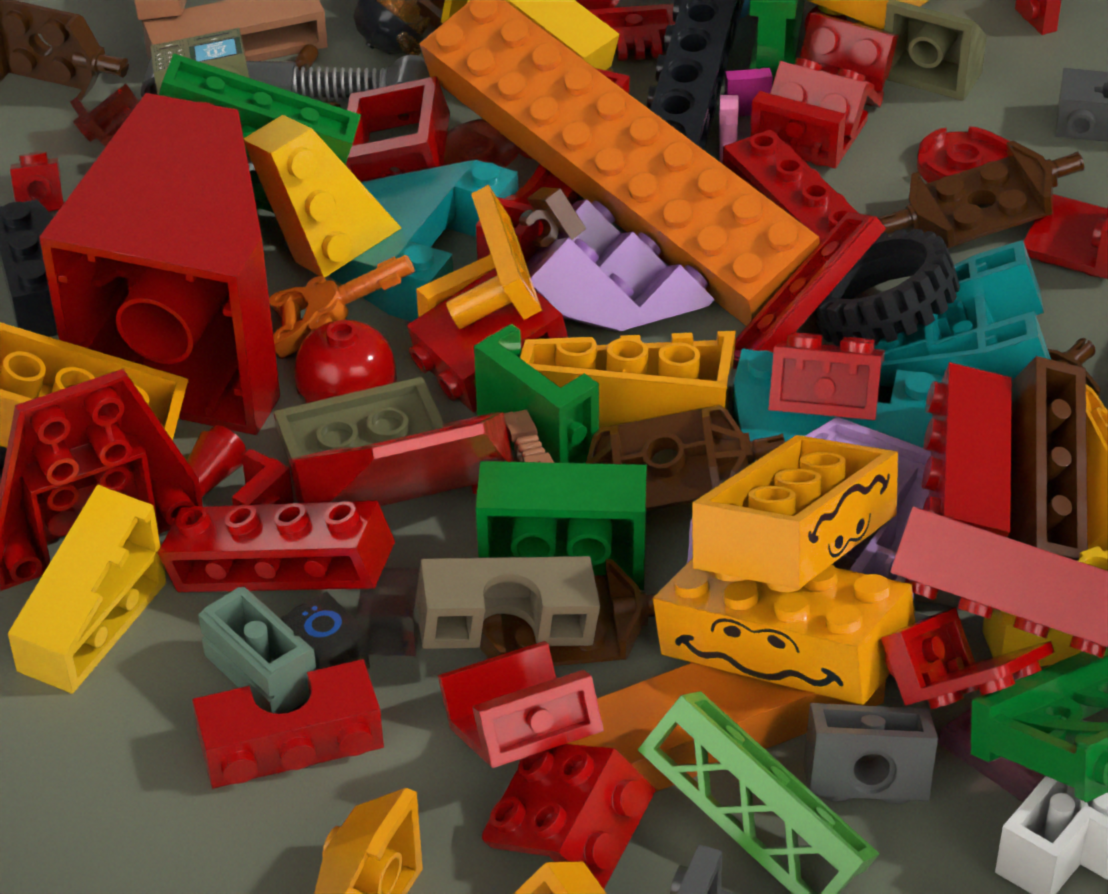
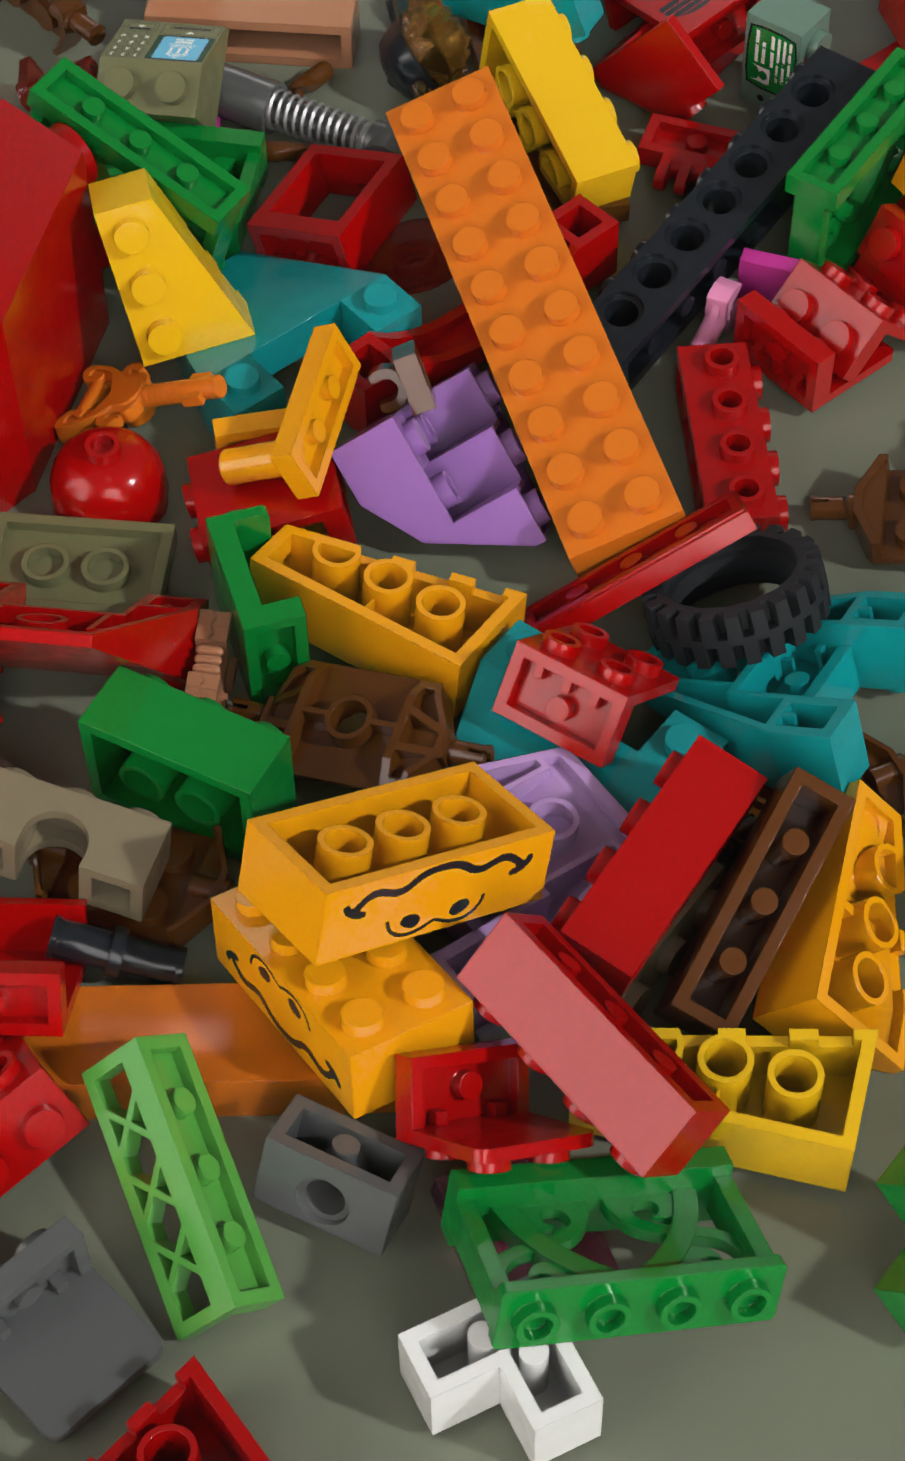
camera: 25 degrees right, 10 degrees up
(606, 670) = (116, 952): none -> black pin

